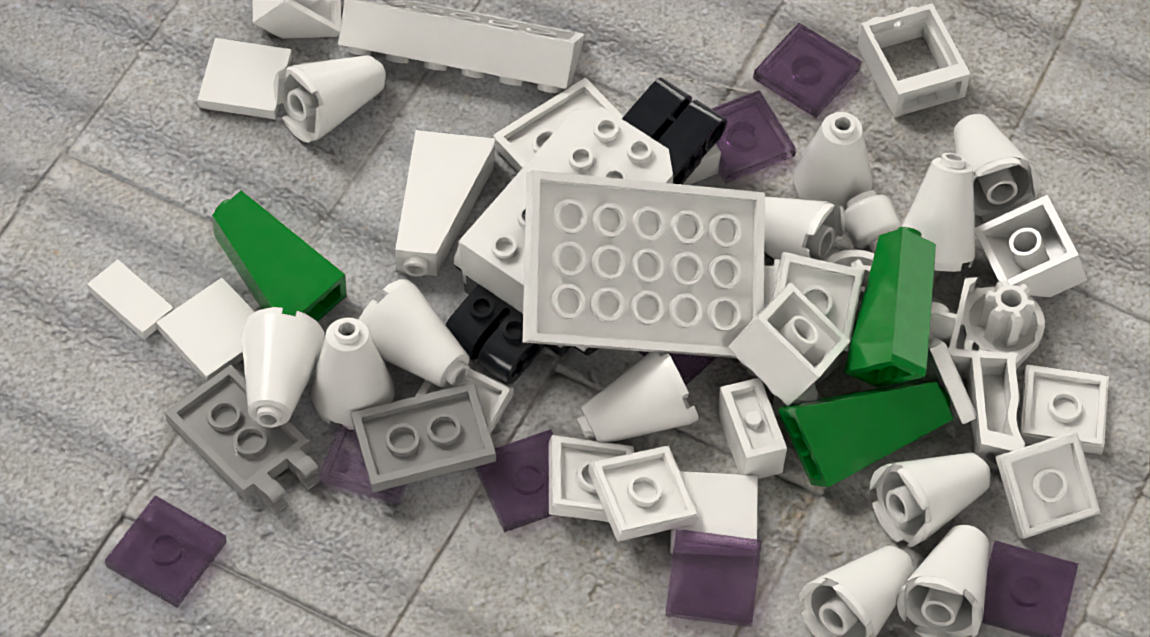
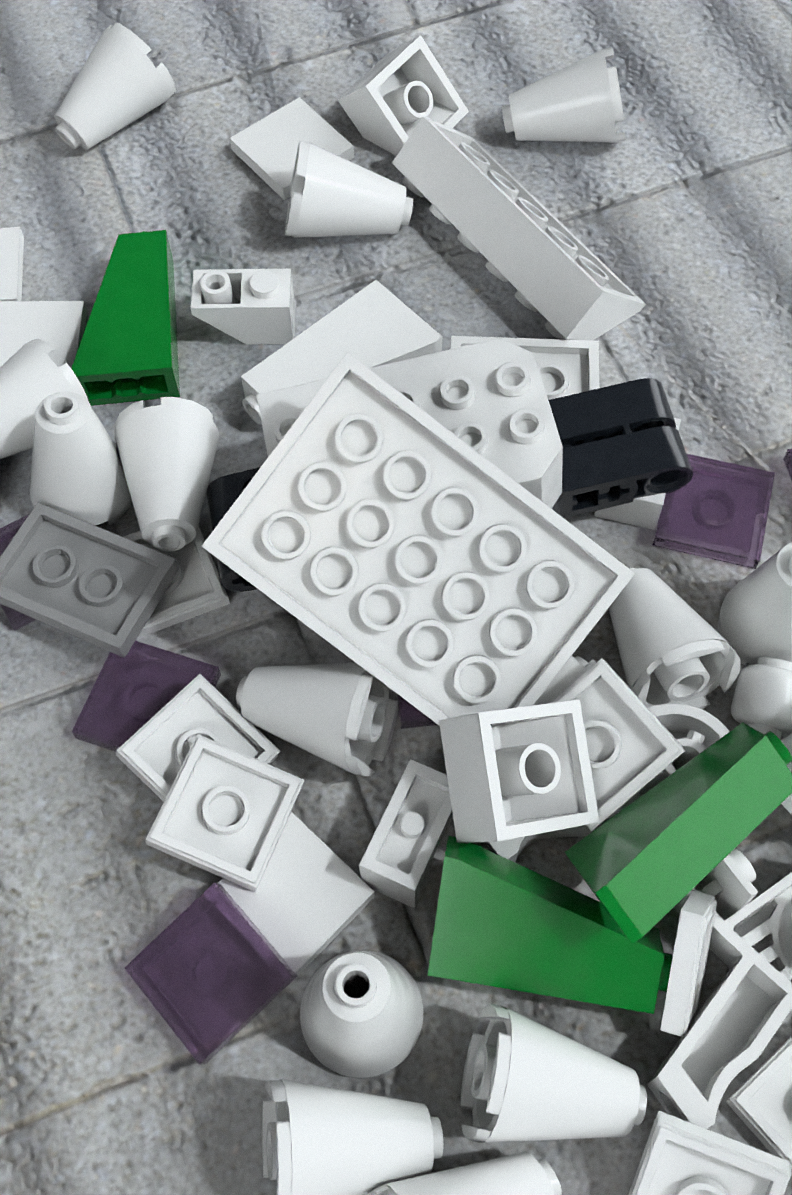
camera: 45 degrees right, 5 degrees up
(83, 117) = (112, 89): none -> white cone
(344, 201) = (246, 303): none -> white slope
(808, 530) = (367, 1032): none -> white cone

